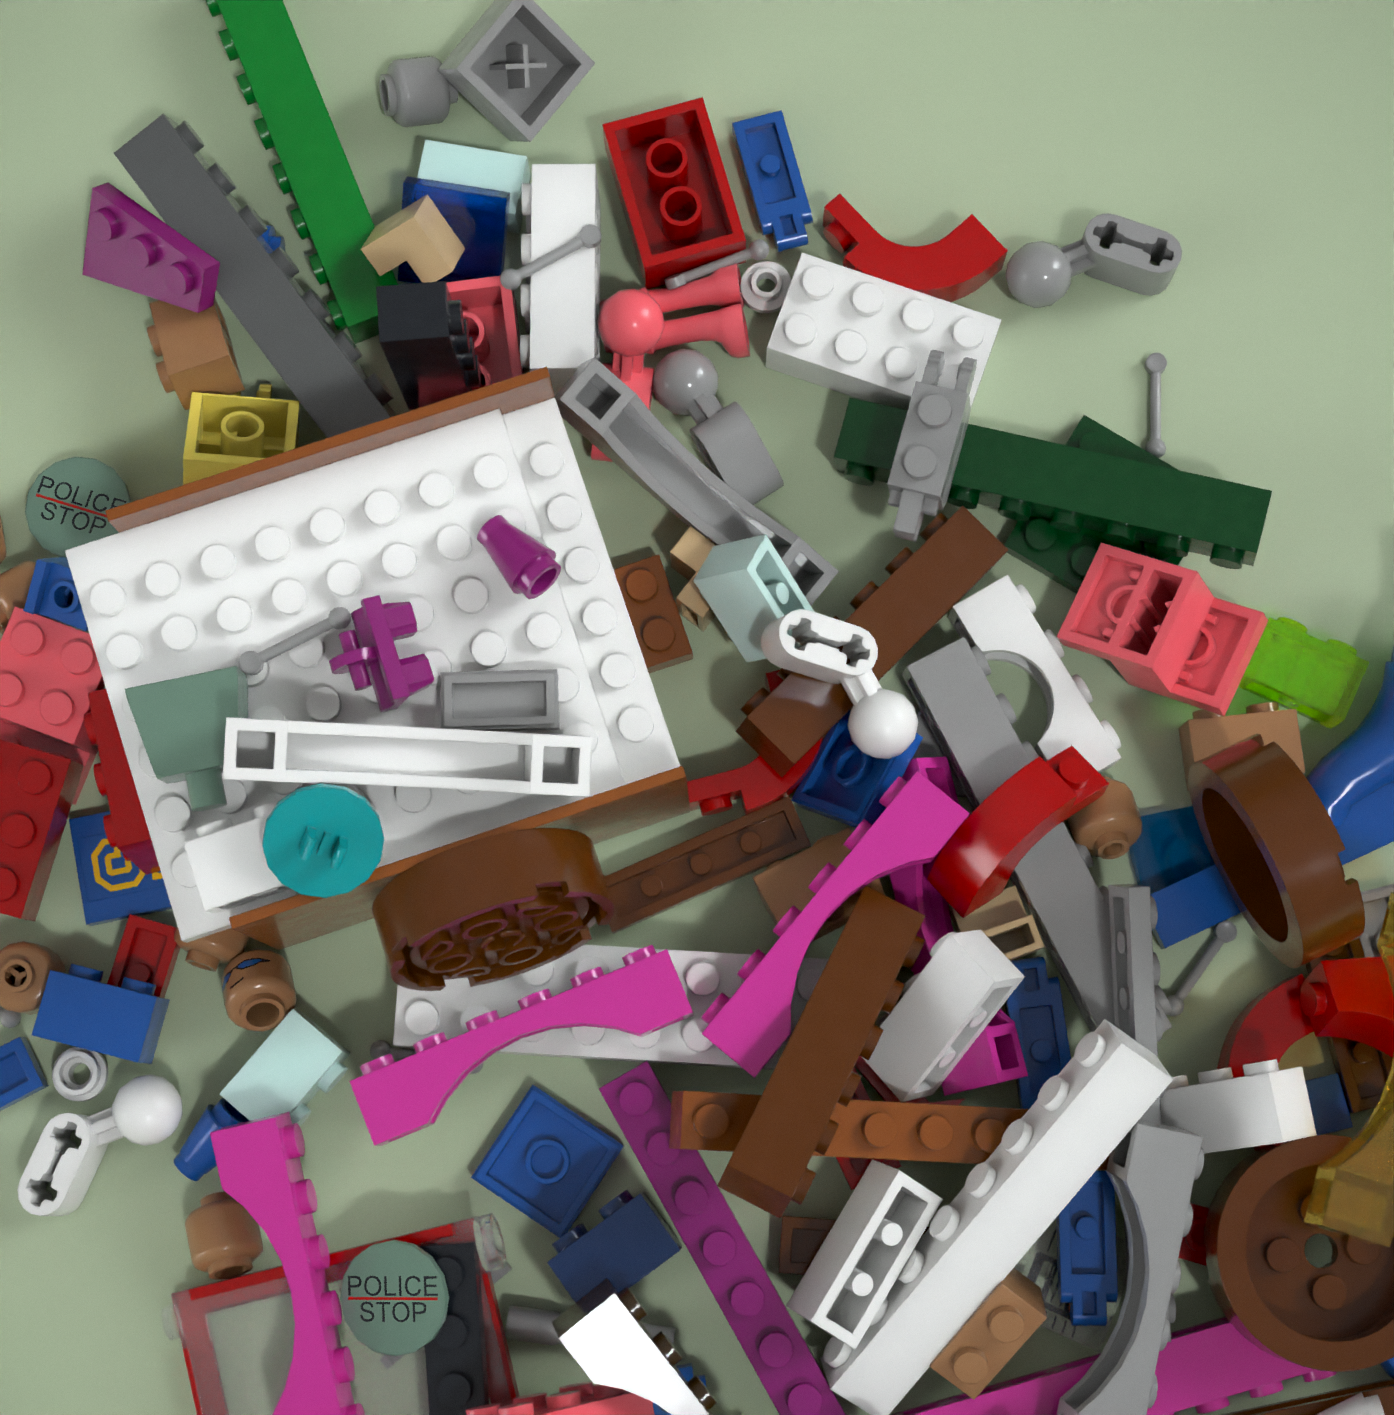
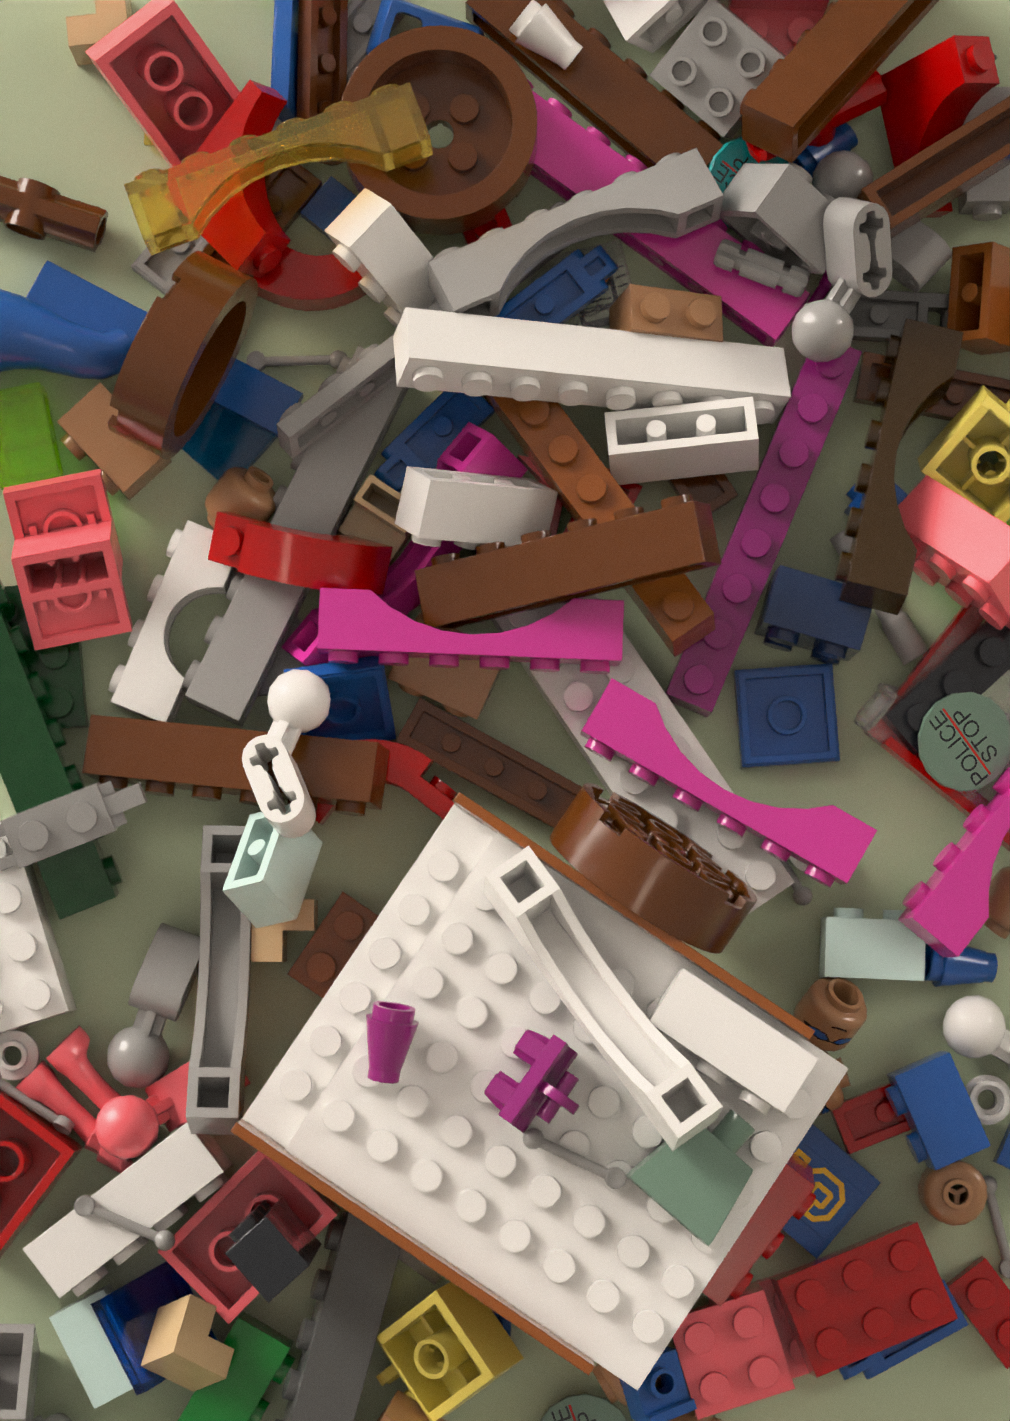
camera: 135 degrees left, 5 degrees up
(323, 840) = (705, 1010): teal piece -> none
(500, 700) = (504, 972): light grey tile -> none

